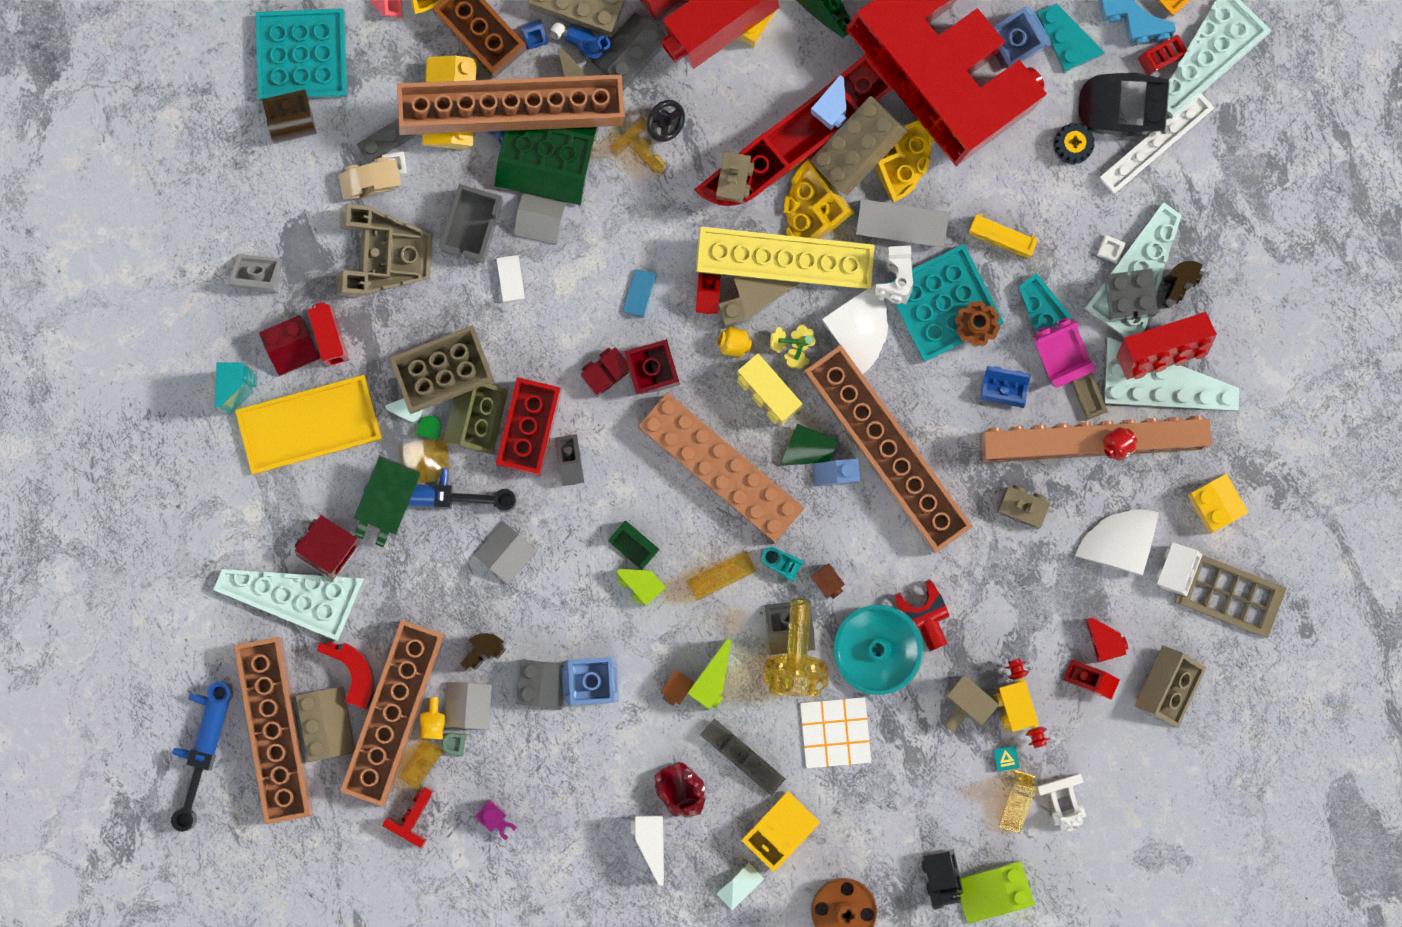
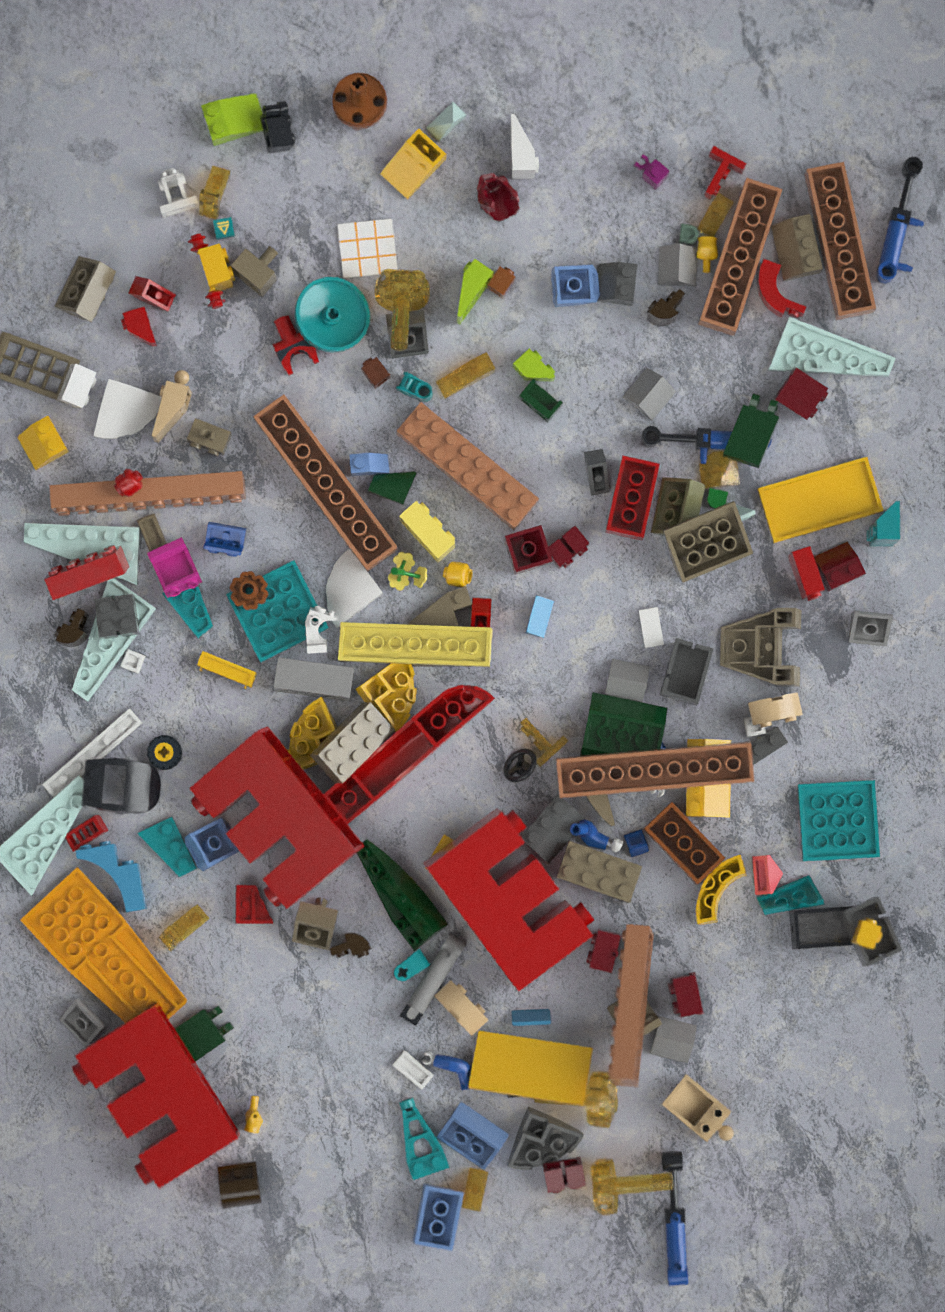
camera: 175 degrees right, 0 degrees up
(289, 116) = (847, 764): dark brown brick -> none
(734, 176) = (460, 707): dark tan brick -> none
(742, 756) = (445, 226): clear smoke slope -> none
(832, 105) = (376, 774): light blue slope -> none
(1066, 544) = (173, 405): none -> tan slope

